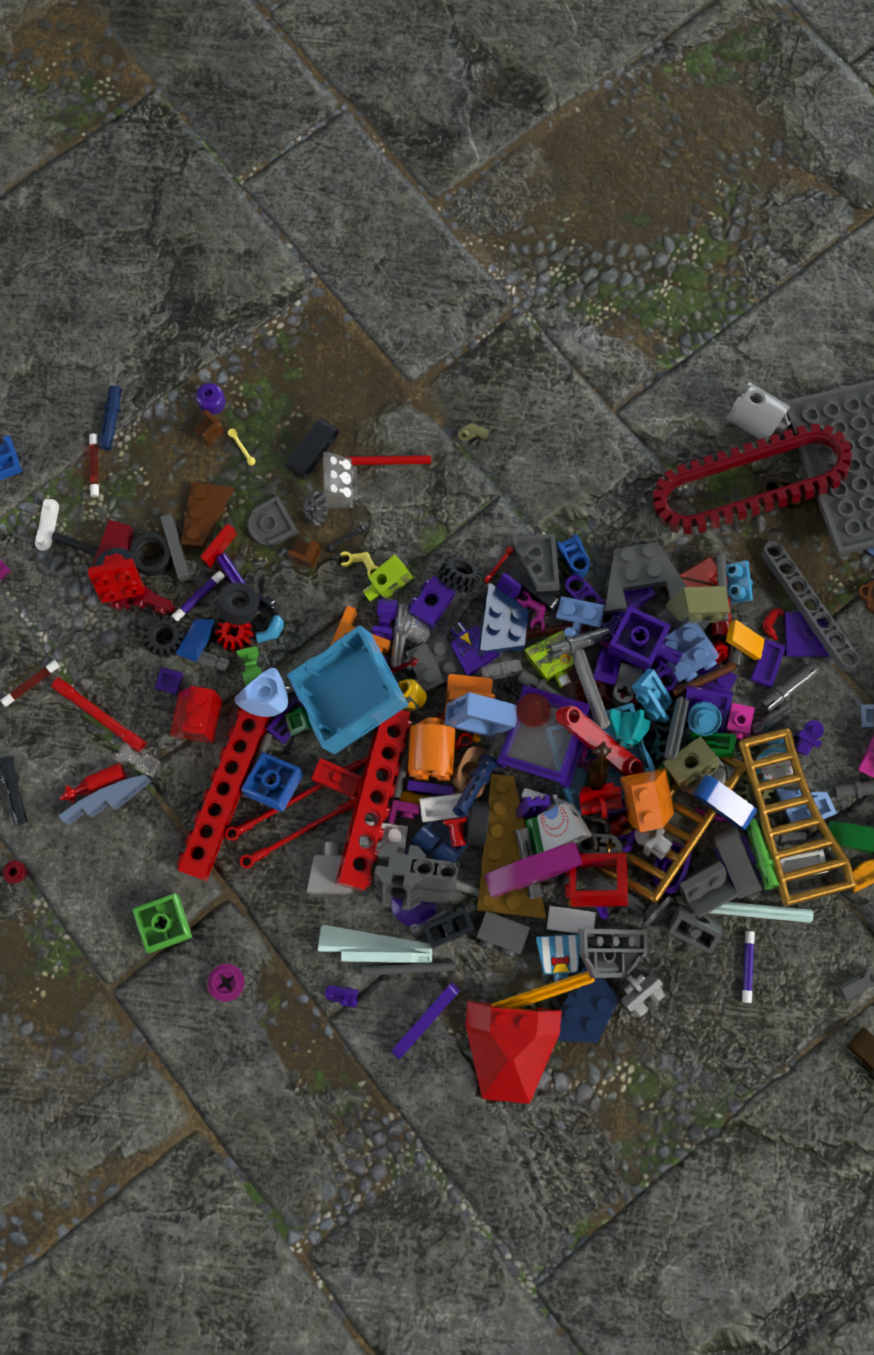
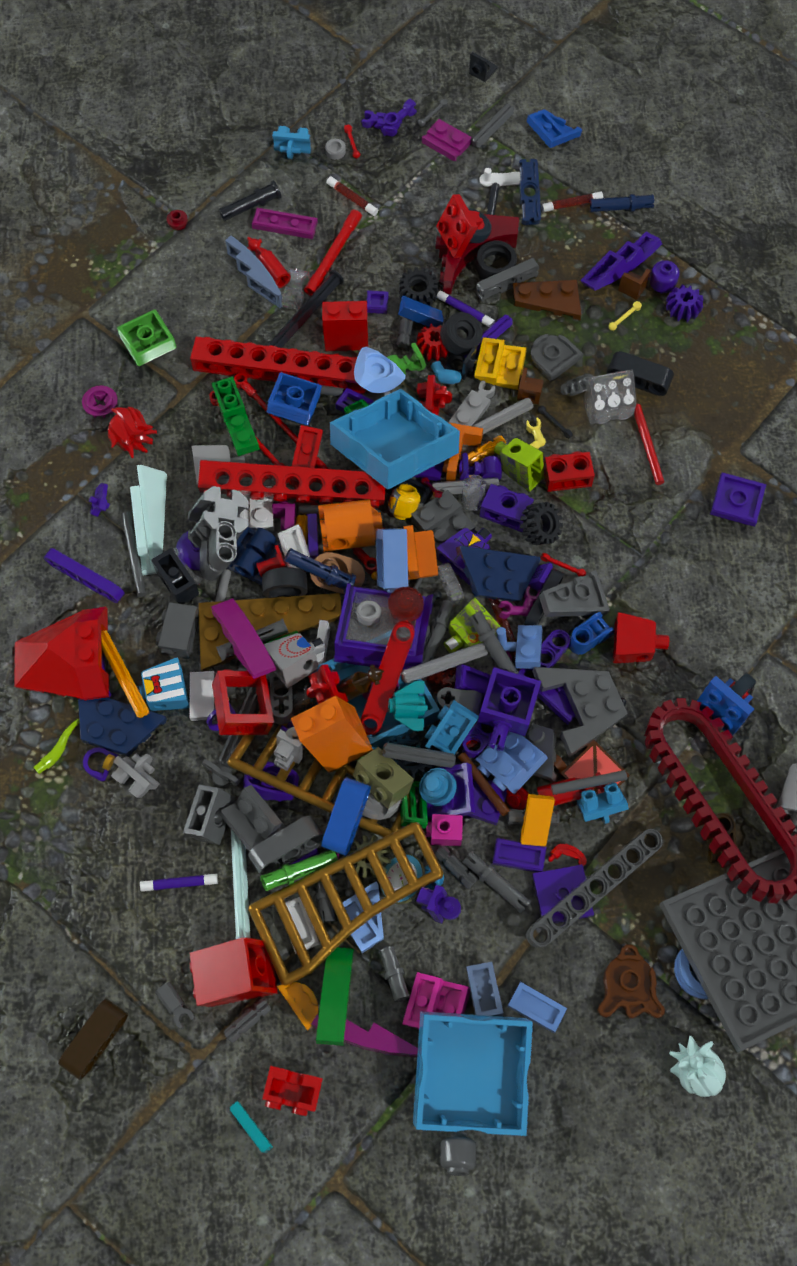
camera: 75 degrees right, 10 degrees down
(47, 759) = (284, 223): none -> magenta tile
(61, 499) = (529, 179): none -> dark blue piece
(165, 754) = (307, 309): none -> black axle
(183, 435) = (627, 258): none -> dark purple slope
(218, 545) = (519, 313): red tile -> none
(241, 381) = (684, 303): none -> dark purple gear
(272, 574) = (500, 363): none -> yellow slope
(273, 953) = (129, 430): none -> red hair
(282, 843) = (235, 416): none -> green slope
(287, 647) = (435, 395): none -> red hips
(315, 613) = (473, 406): none -> light grey plate
(330, 585) = (505, 415): none -> light grey axle
(364, 609) = (485, 450): none -> light orange axle
(409, 538) = (569, 476): none -> red brick
(463, 395) = (738, 499): none -> dark purple plate
(471, 431) = (701, 513): olive arm -> none
(532, 808) = (309, 632): dark purple tile -> none
(535, 746) = (368, 613): none -> light grey tile
(587, 518) = (636, 639): none -> red torso
(607, 1070) = (55, 754): none -> lime animal
(611, 951) = (172, 728): dark grey wedge -> none
(628, 1014) = (106, 765): none -> dark purple piece
(663, 452) = (729, 701): none -> blue plate
(699, 604) = (560, 755): olive slope -> none
(841, 929) = (232, 972): none -> slope

